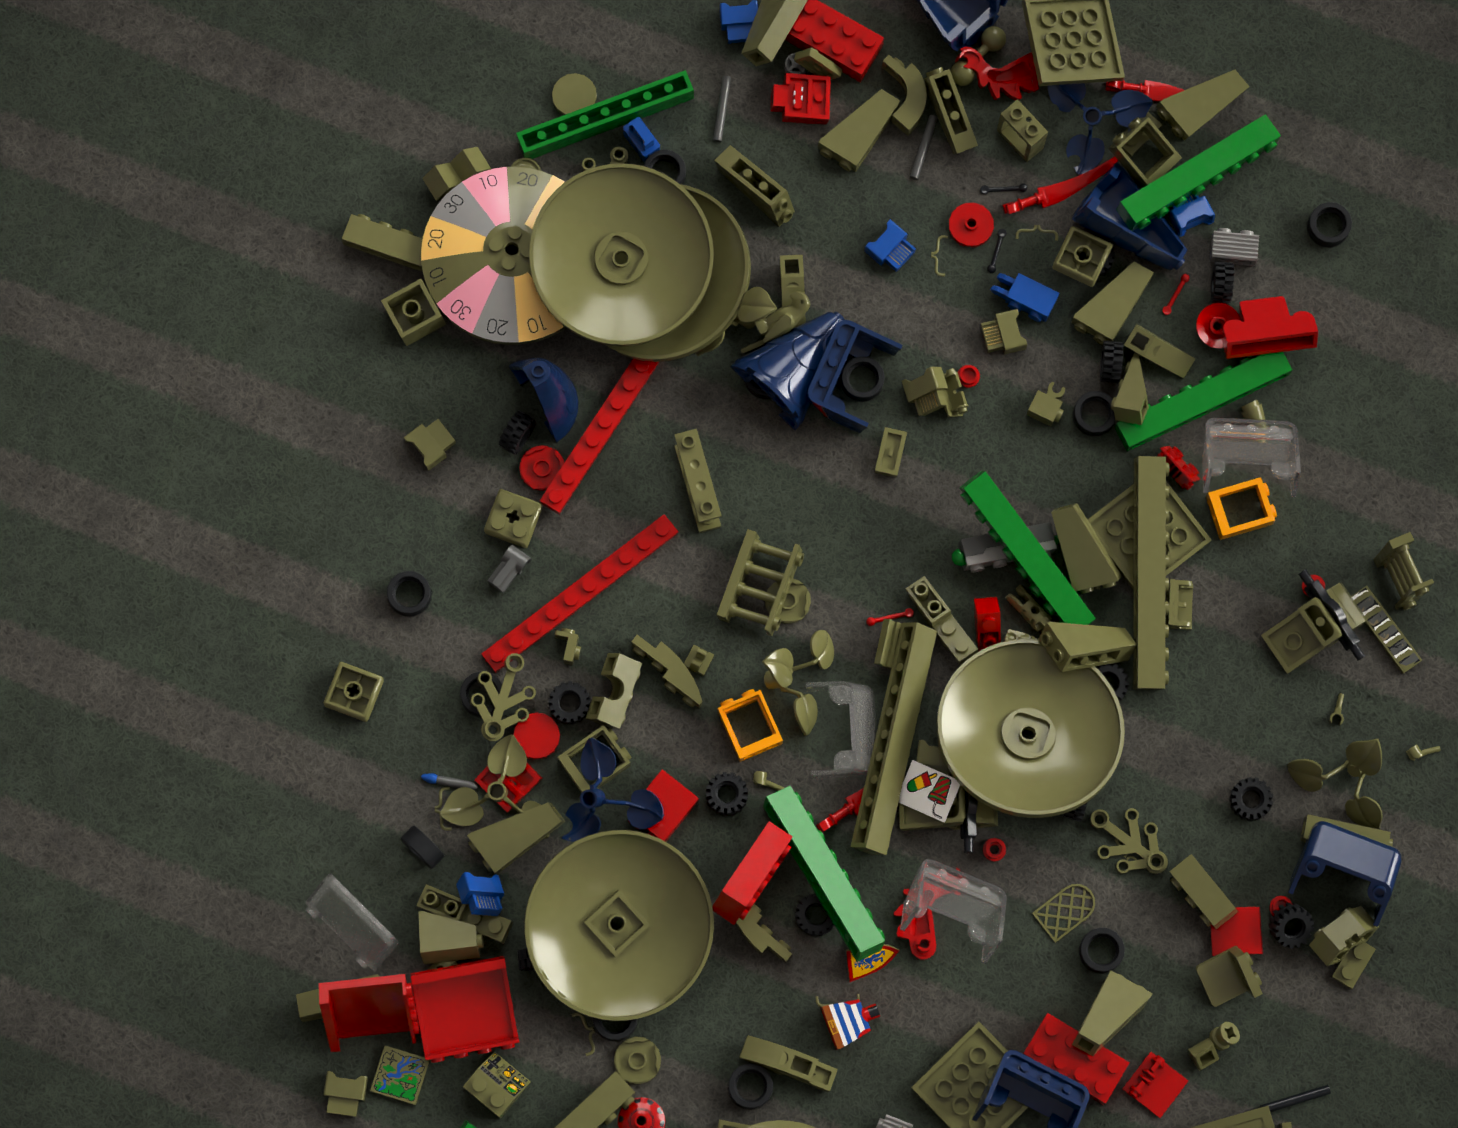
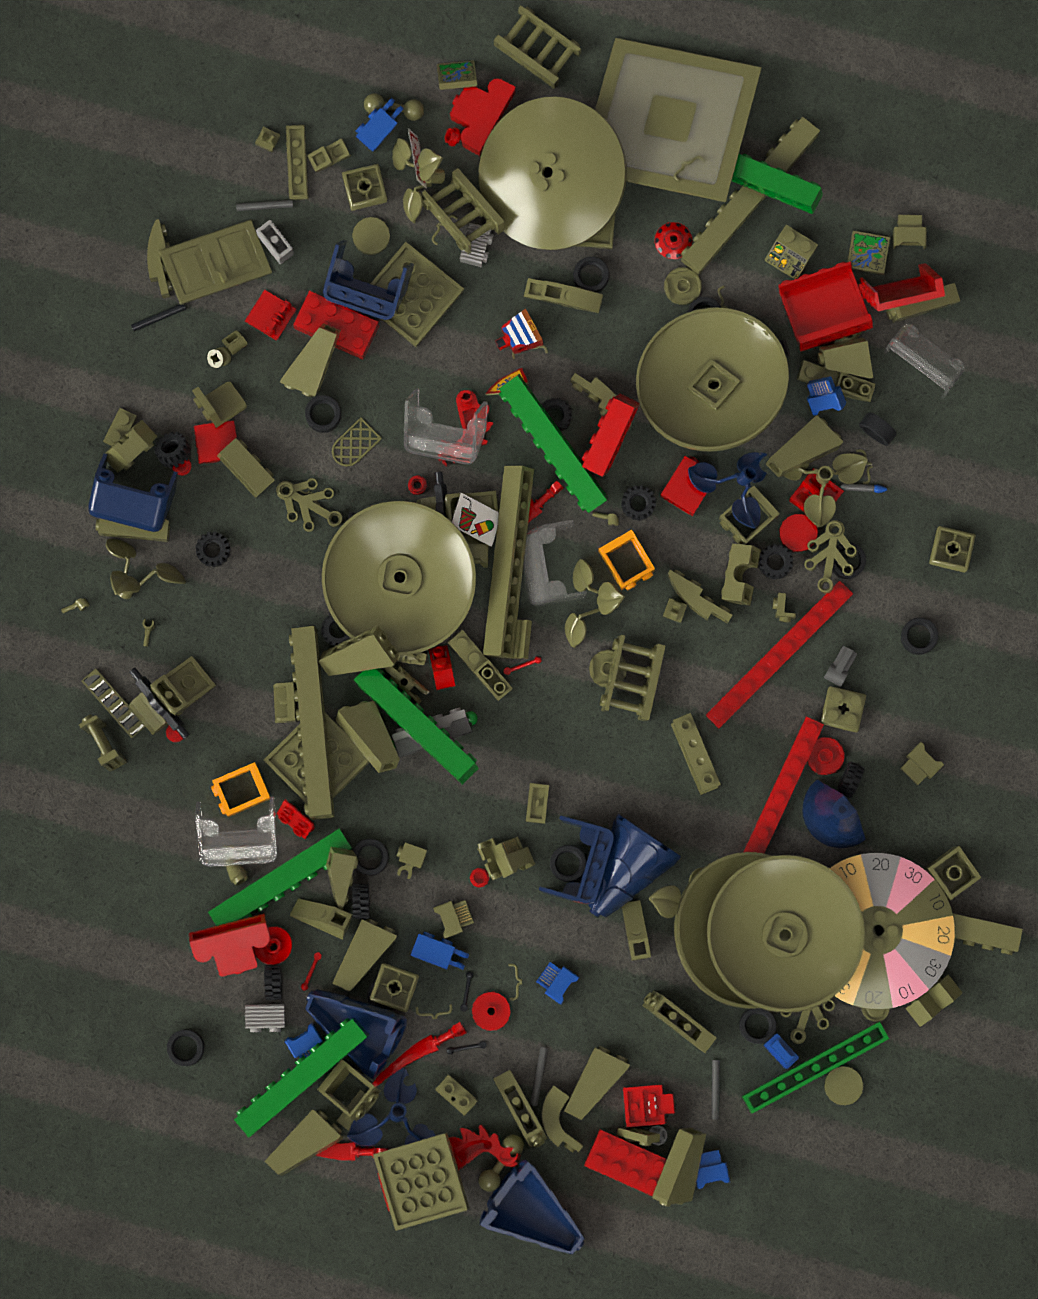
camera: 175 degrees right, 5 degrees up
(781, 320) = (640, 903): olive animal -> none

